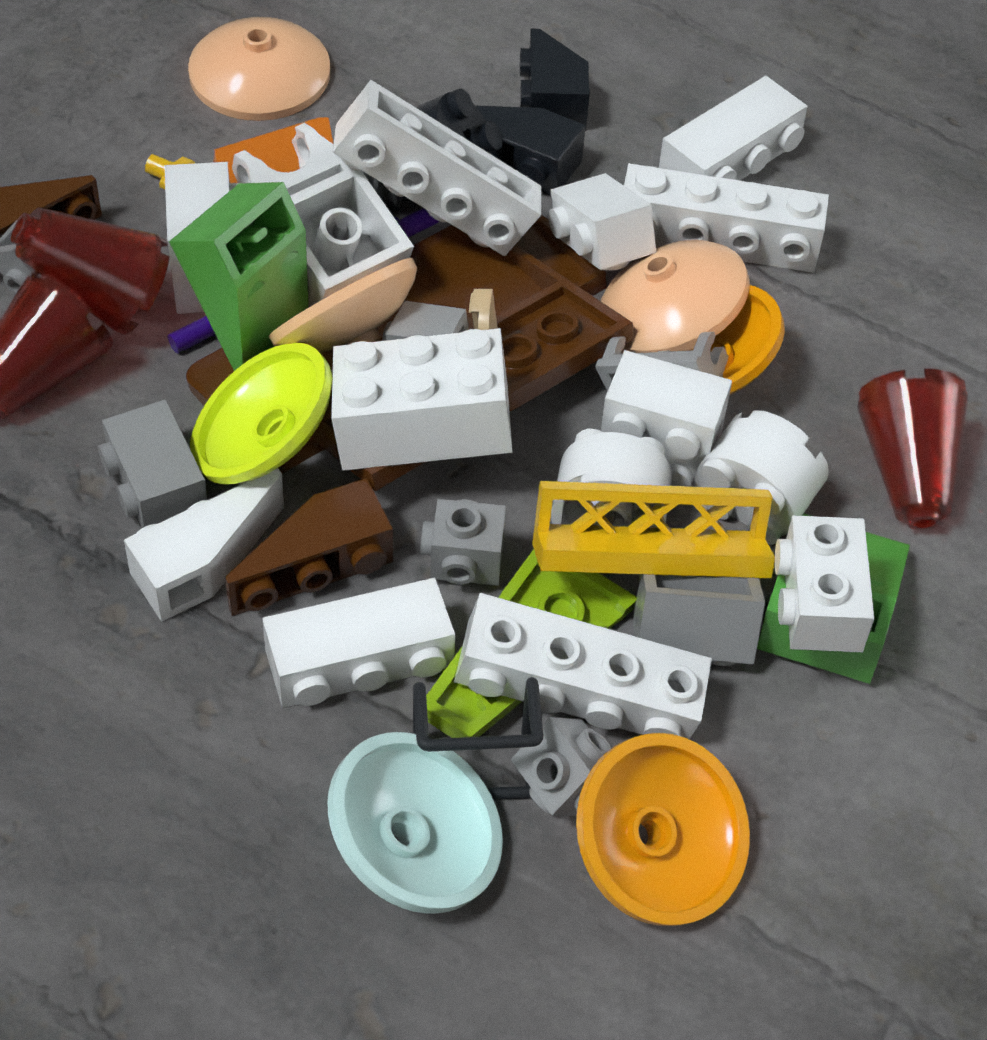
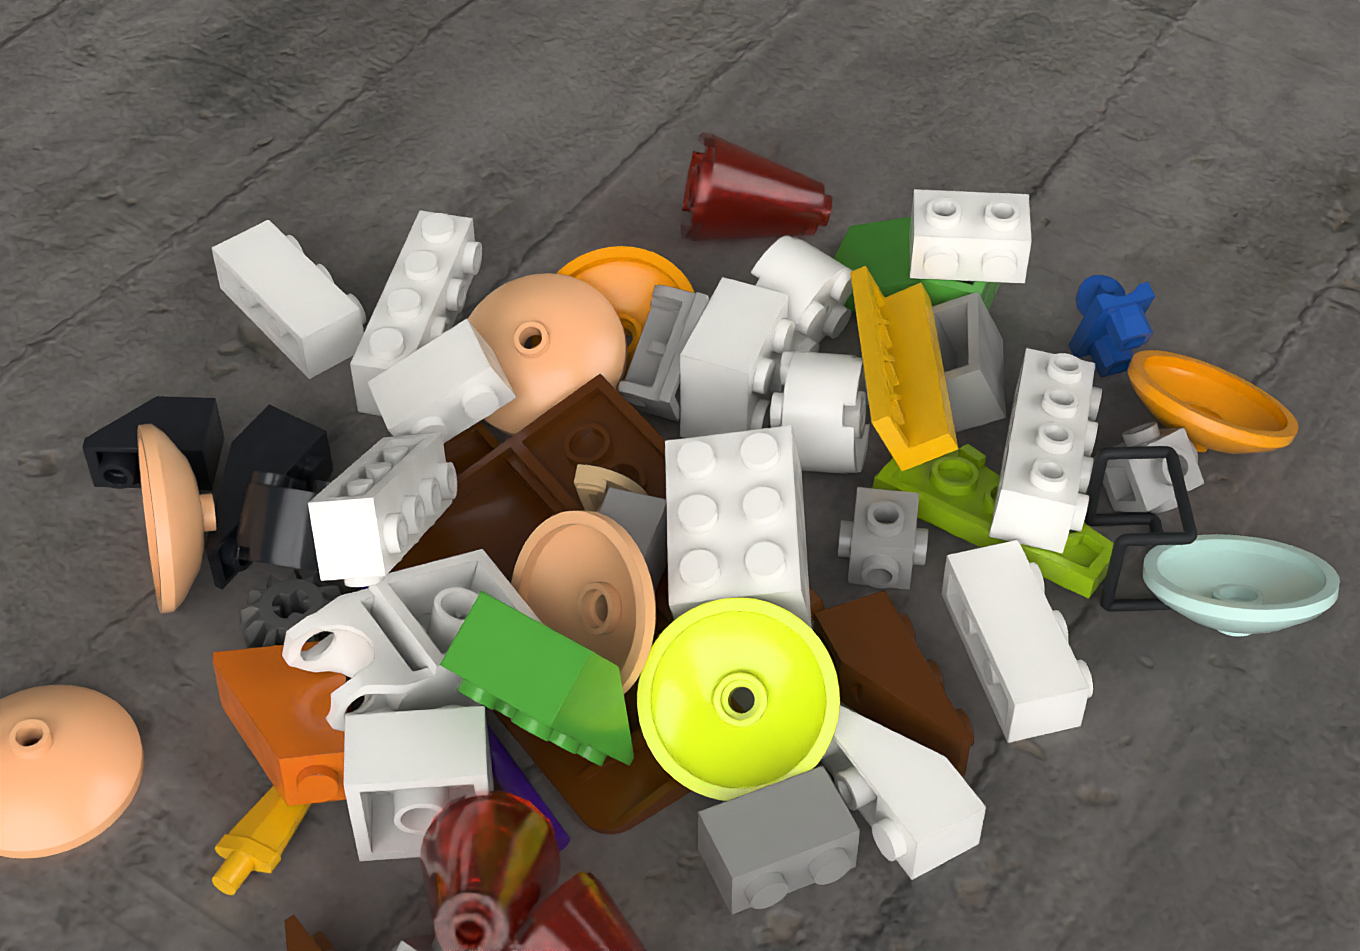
camera: 85 degrees left, 5 degrees down
(445, 53) = (173, 516): none -> light nougat dish
(764, 751) = (1111, 323): none -> blue hips

